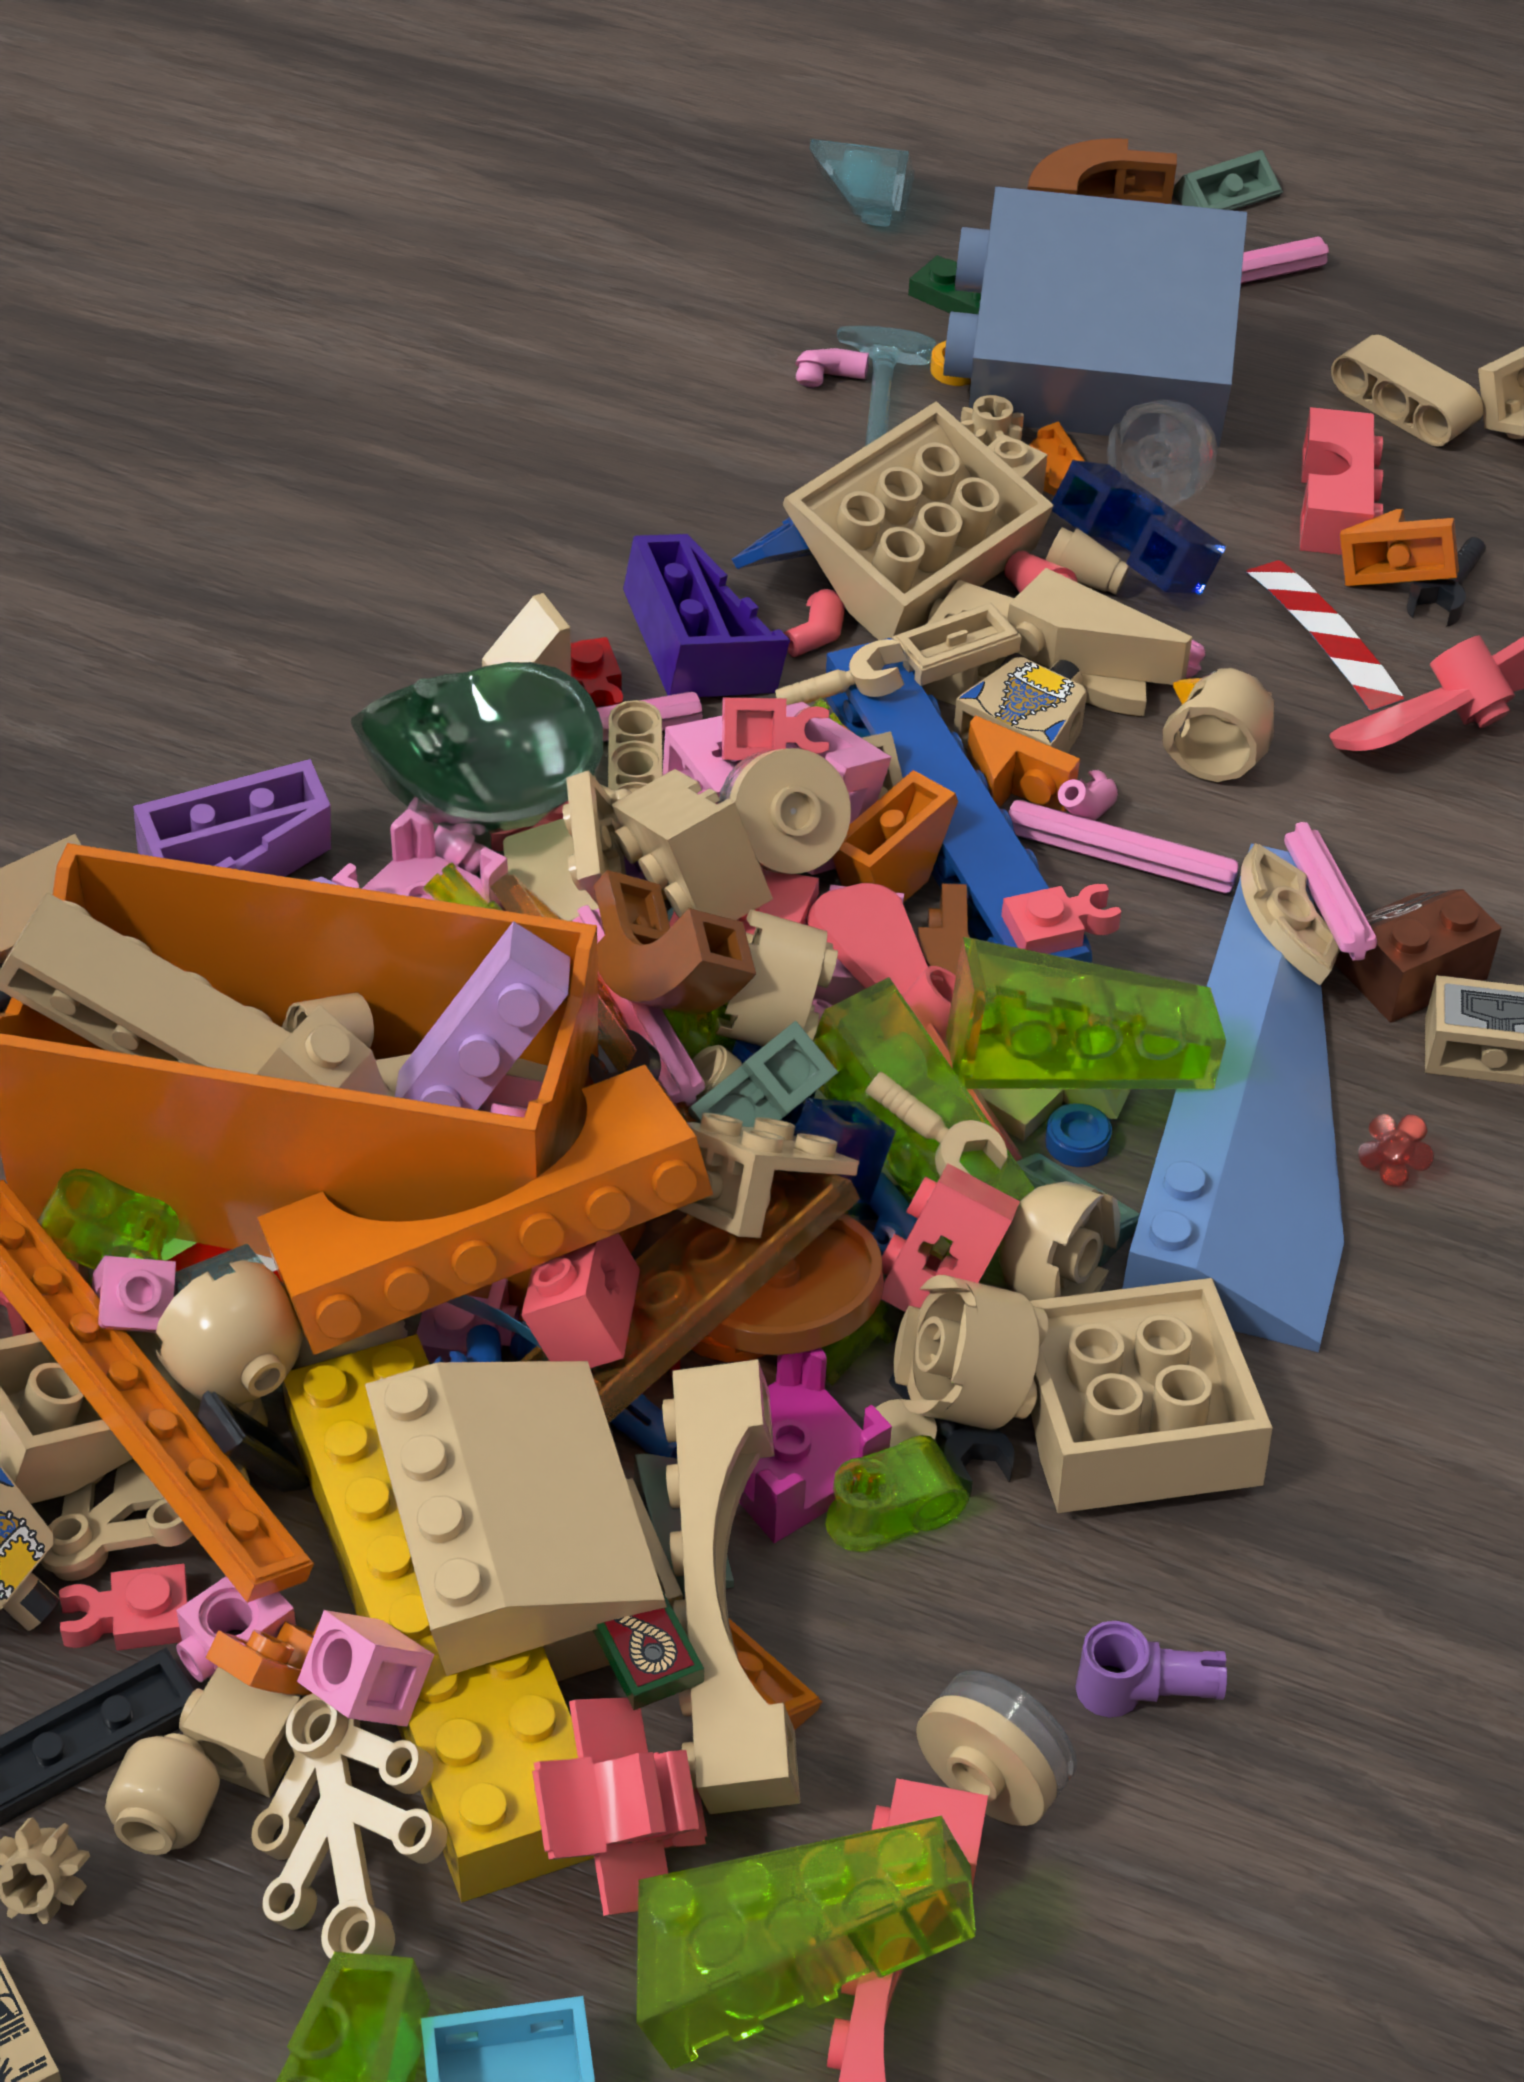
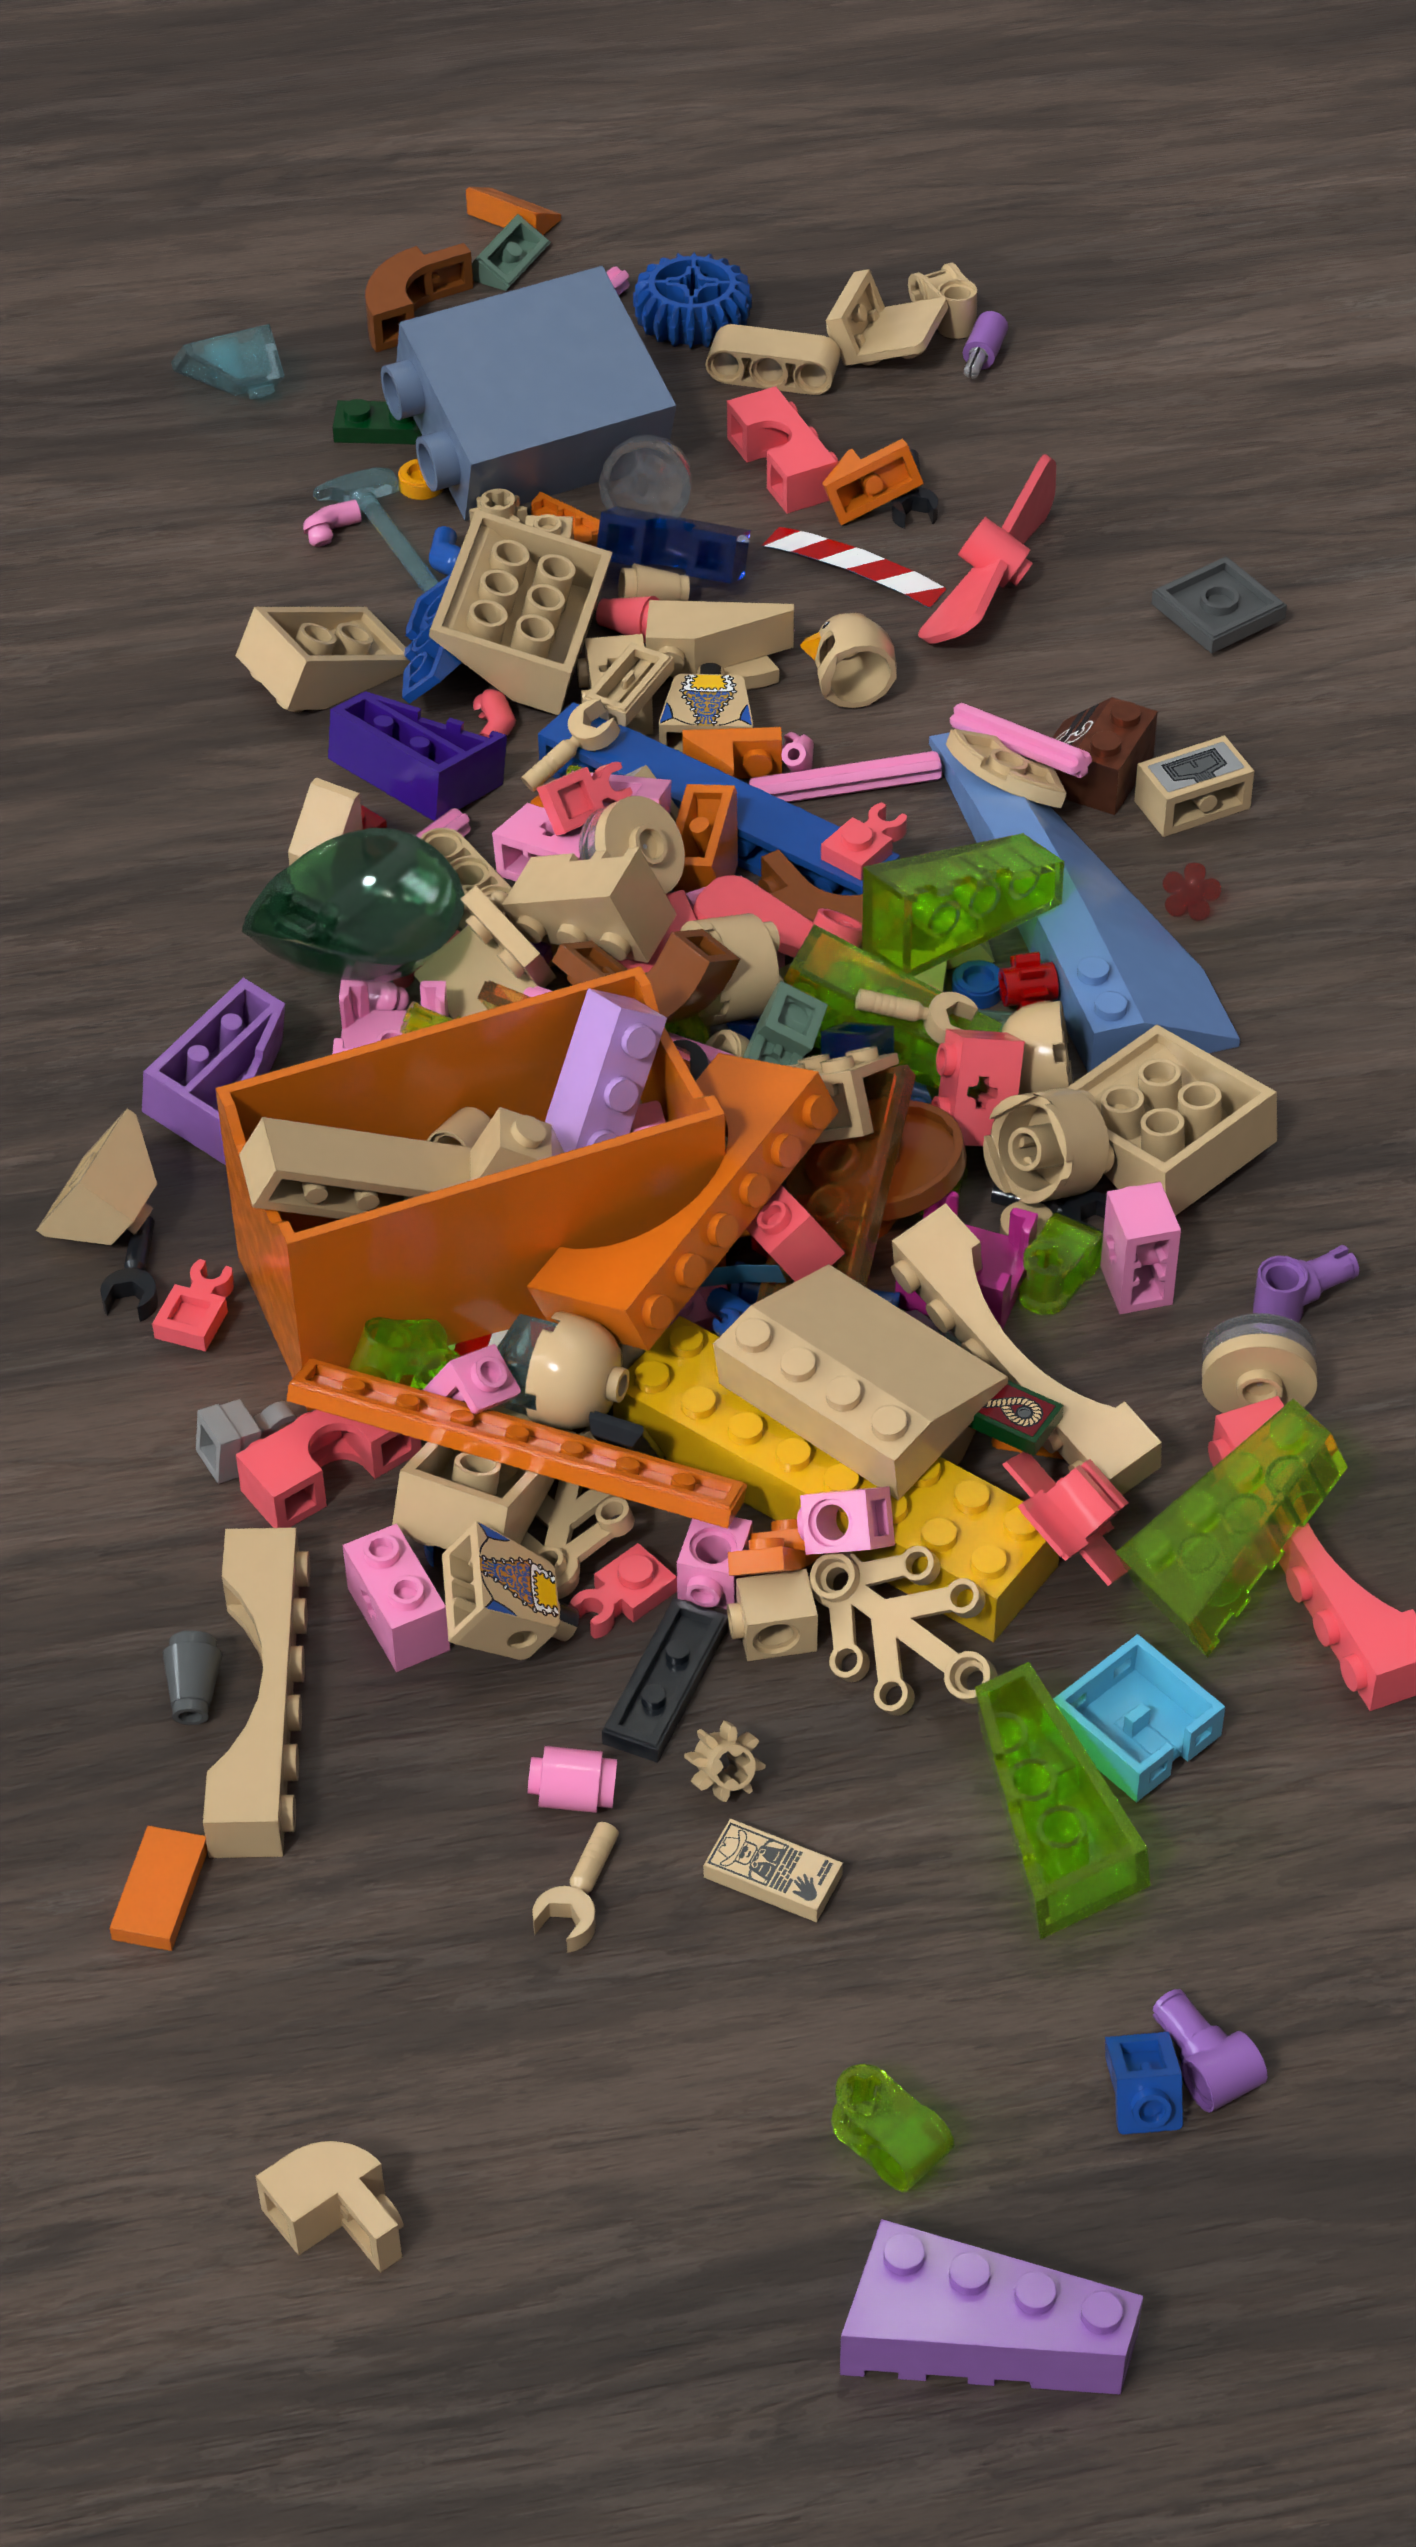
camera: 30 degrees left, 0 degrees up
(162, 1793) = (762, 1675): tan head -> none
(700, 482) = (319, 654): none -> tan slope
(978, 1527) = (1140, 1247): none -> bright pink brick
(1120, 1160) = (1028, 981): none -> red gear
(1256, 133) = (501, 208): none -> orange slope
(1371, 294) = (691, 299): none -> blue gear

